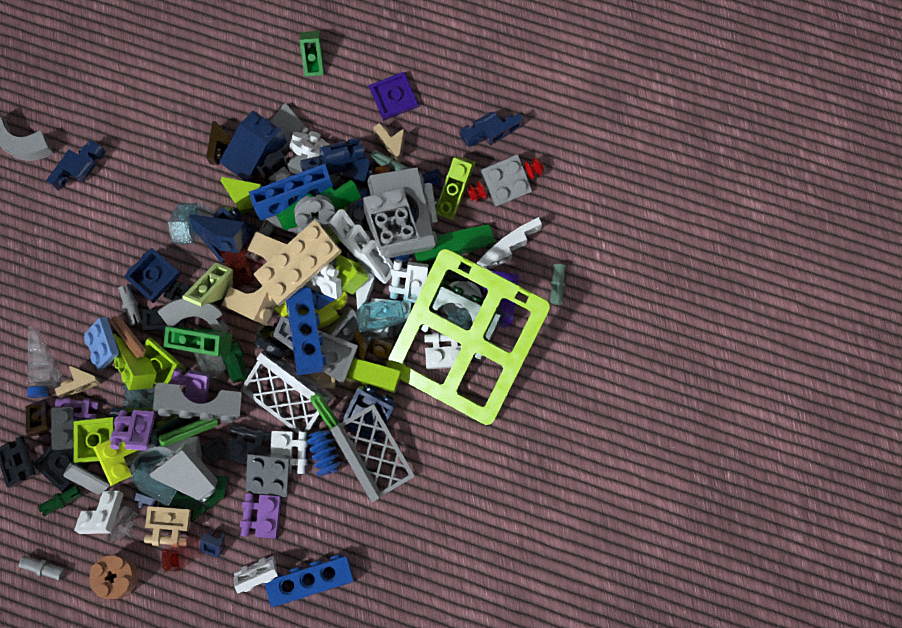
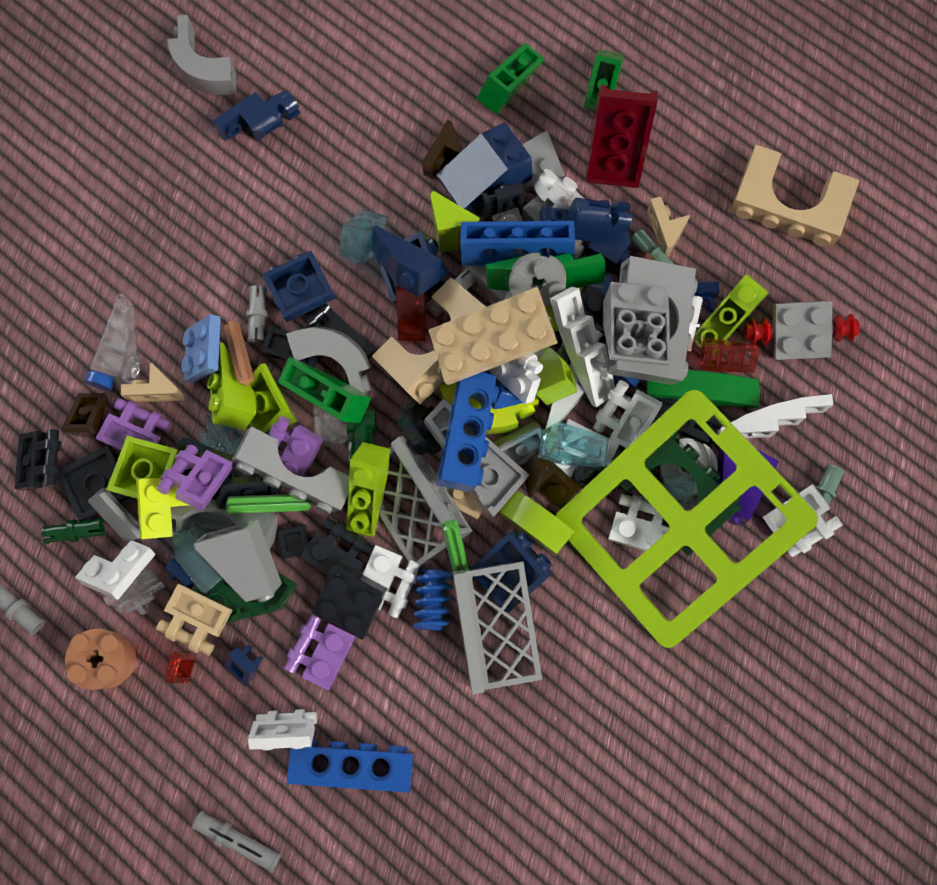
camera: 20 degrees right, 0 degrees up
(62, 428) = (110, 438): dark grey plate -> none
(211, 285) = (367, 327): yellowish green slope -> none
(245, 74) = (509, 78): none -> green slope
(251, 395) = (366, 487): none -> lime slope
(336, 94) = (620, 136): none -> dark red ladder
(393, 96) = (689, 170): dark purple tile -> none
(446, 102) = (758, 202): none -> tan arch
(451, 226) = (709, 345): none -> clear red slope
(490, 128) = (803, 256): dark blue plate -> none
(552, 295) = (824, 529): none -> white plate

